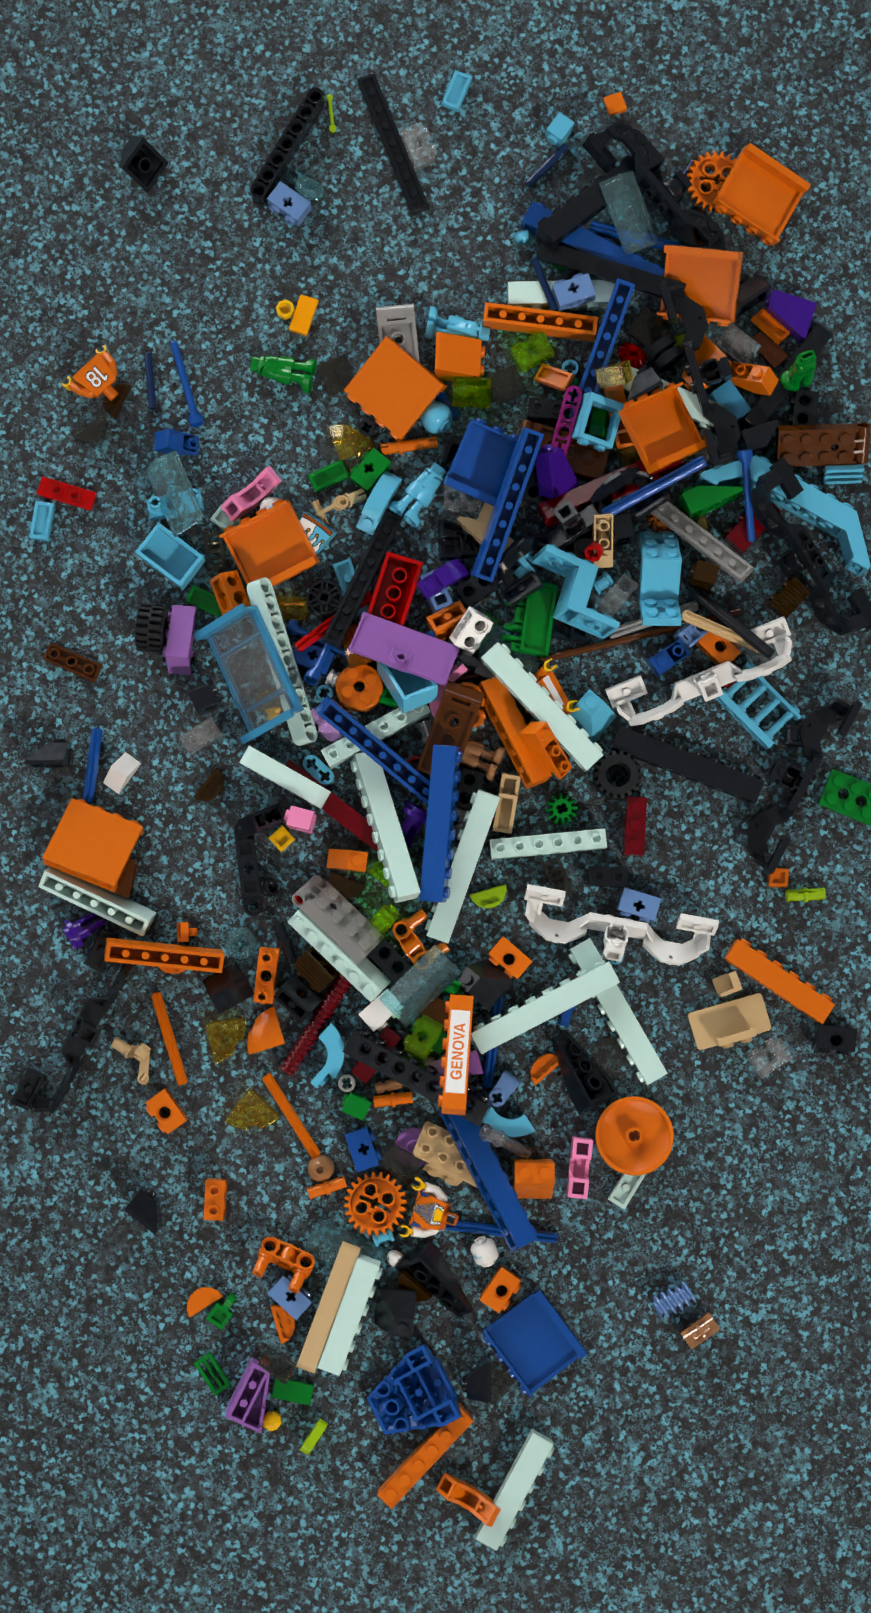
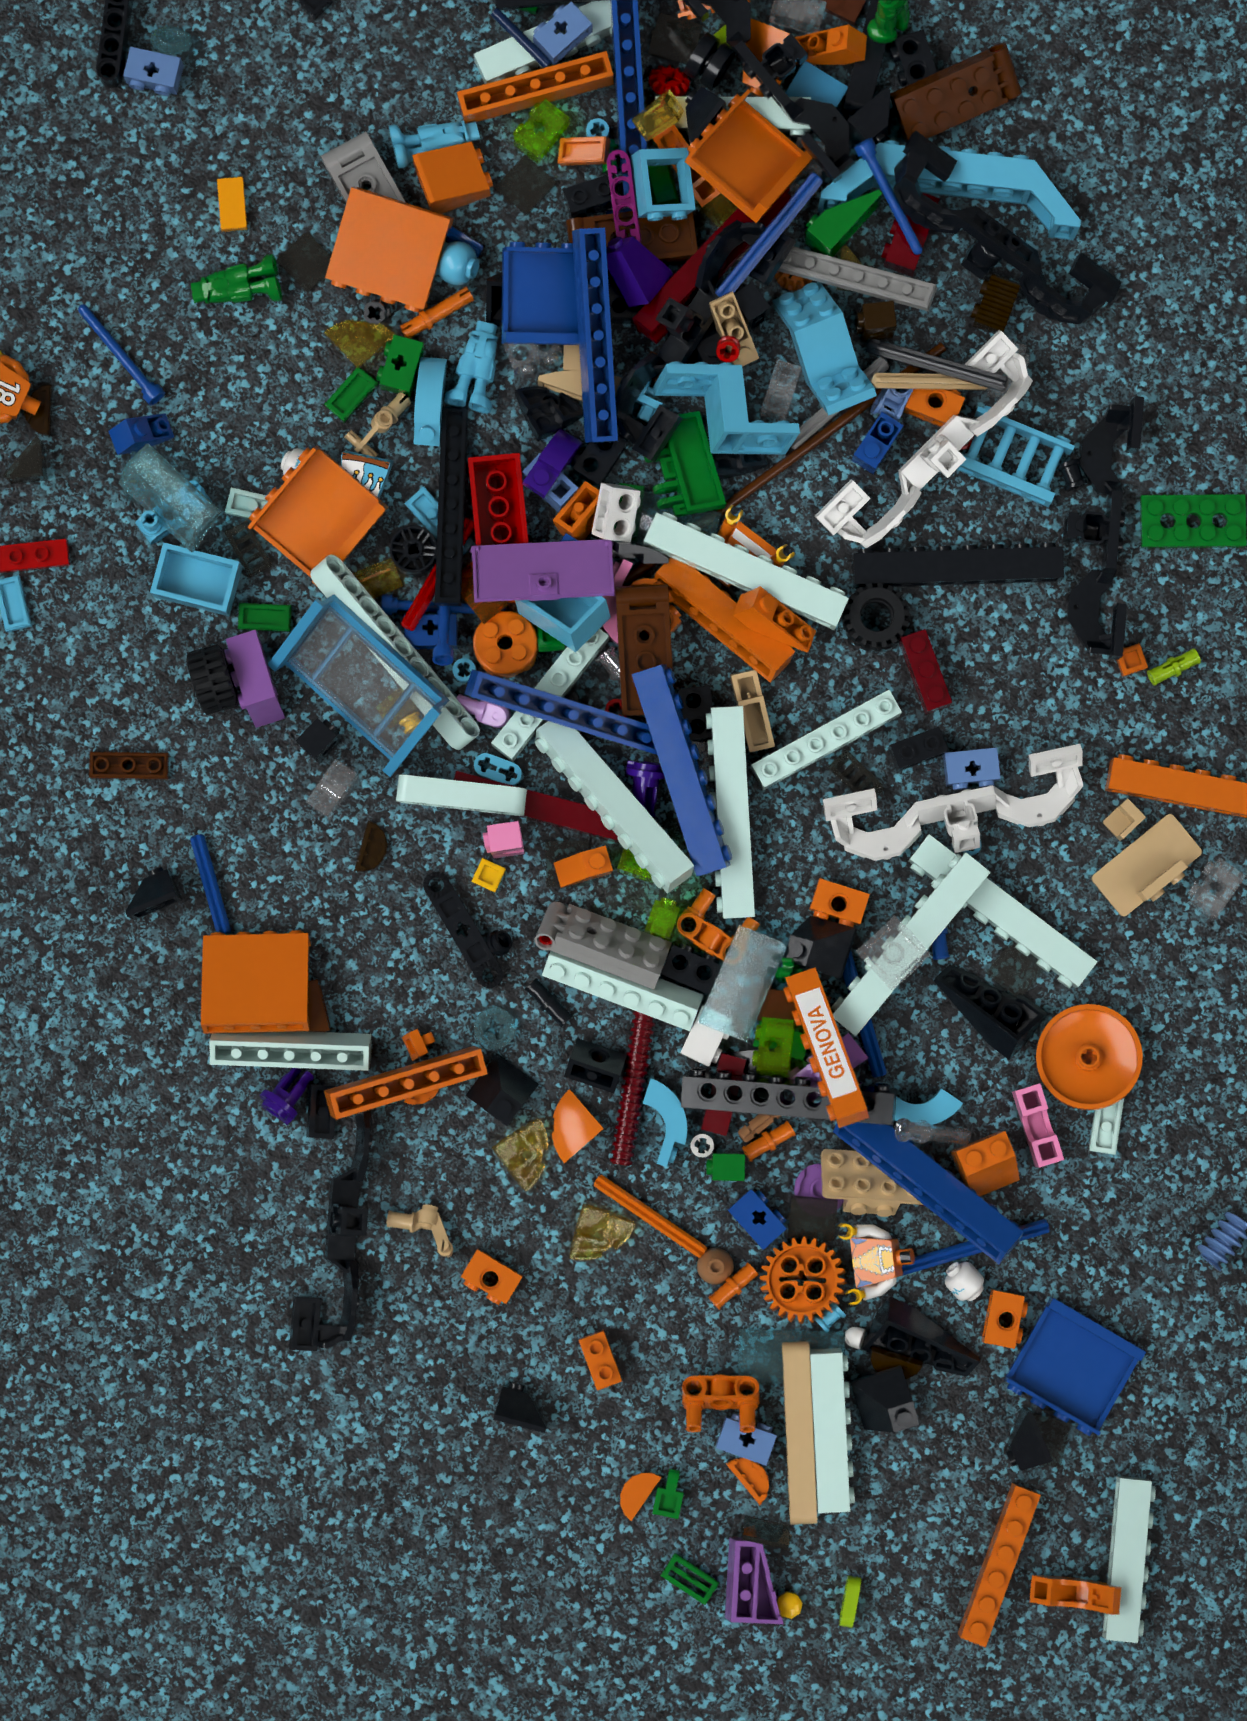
camera: 20 degrees left, 0 degrees up
(121, 772) = (251, 878): white slope -> none
(150, 381) = (73, 369): dark blue bar -> none
(169, 1038) = (455, 1185): orange axle -> none
(229, 591) = (289, 592): orange brick -> none
(251, 496) = (266, 459): bright pink arch -> none
(261, 820) = (455, 861): black brick -> none
(267, 960) = (548, 1072): orange piece -> none
(285, 309) = (206, 206): yellow tile -> none
(293, 1391) = (799, 1557): green tile -> none
(315, 970) = (602, 1020): dark brown brick -> none
(331, 678) = (466, 646): white bush -> none
(345, 887) = (595, 901): dark brown tile -> none
(415, 1395) = (953, 1494): blue wedge -> none
(471, 392) = (487, 212): clear neon green brick -> none
(475, 750) = (685, 661): medium nougat piece -> none
(489, 898) = (781, 838): lime tile -> none
(505, 1086) = (902, 1065): medium blue piece -> none
(530, 1009) = (893, 953): none -> clear panel
(542, 1067) = (938, 1021): orange tile -> none
(565, 815) = (831, 695): green gear -> none
(593, 715) = (814, 554): medium azure slope -> none
(602, 582) = (754, 383): medium azure bush -> none
(838, 474) = (998, 120): medium azure tile -> none

